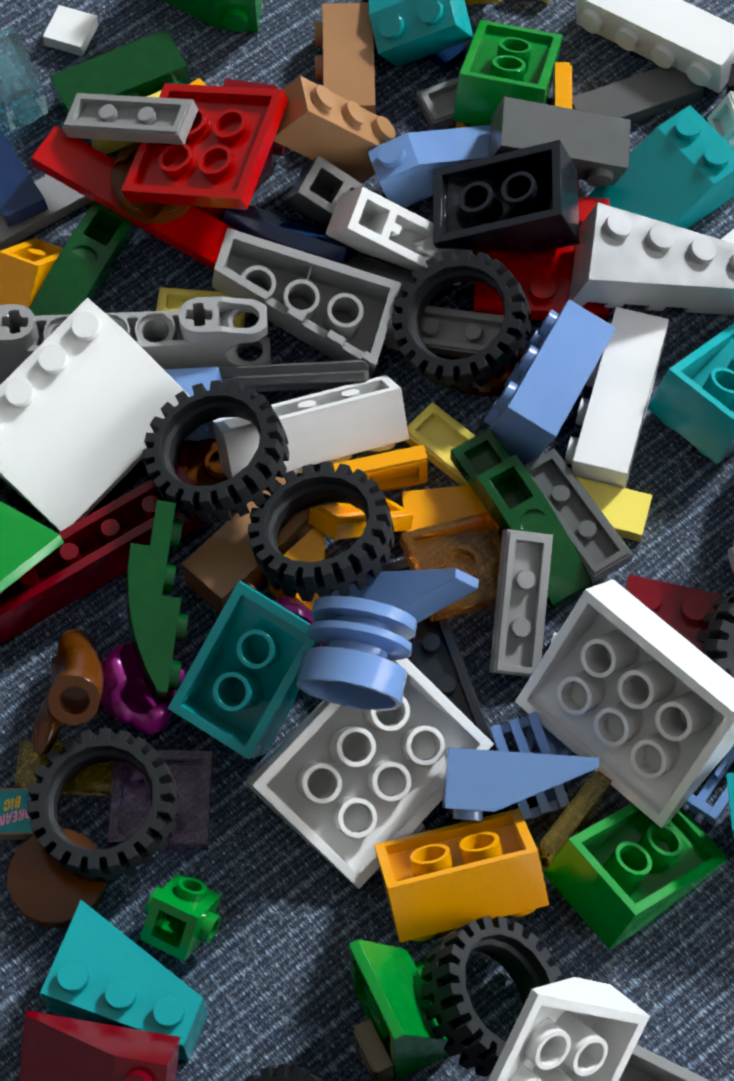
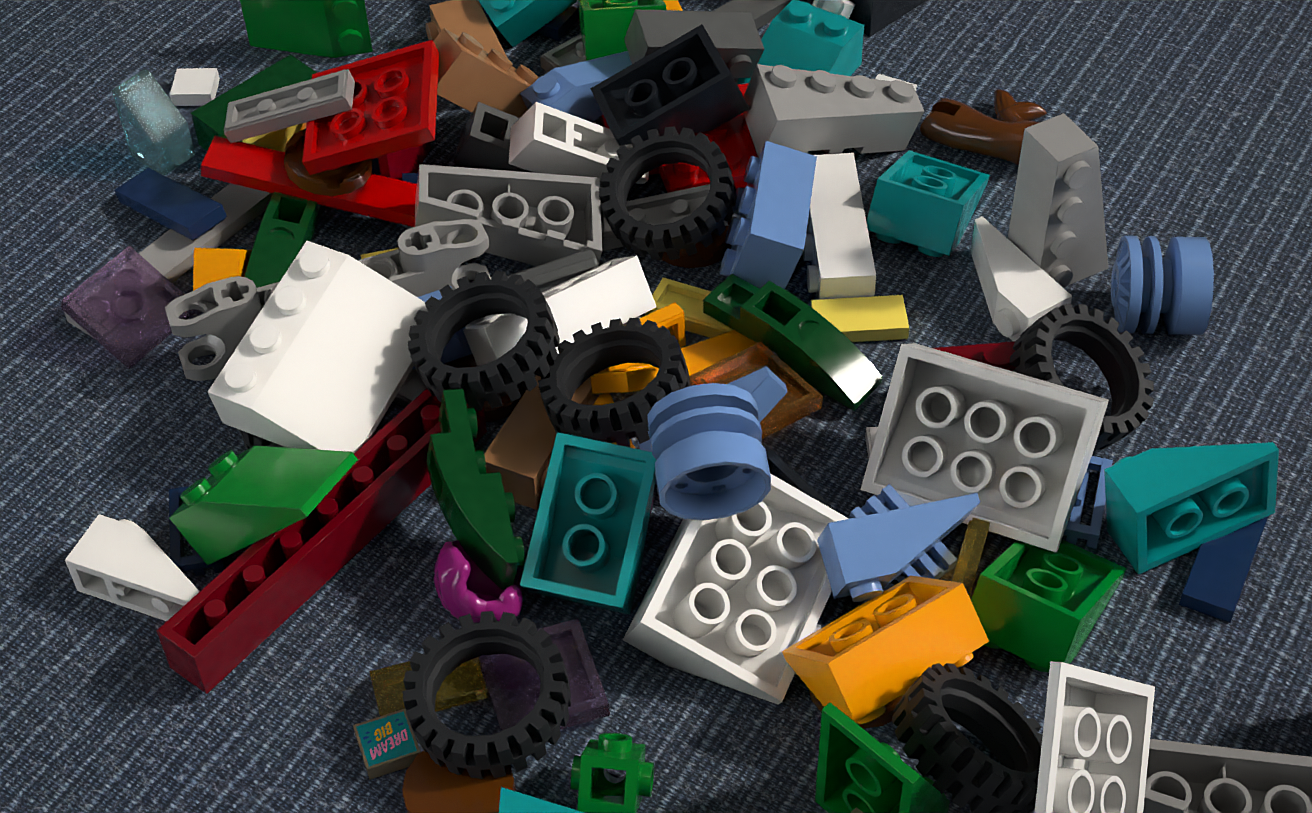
camera: 20 degrees left, 15 degrees down
(74, 691) = (413, 588): reddish brown piece -> none
(520, 602) = (828, 405): light grey tile -> none
(585, 524) = (870, 336): dark grey tile -> none

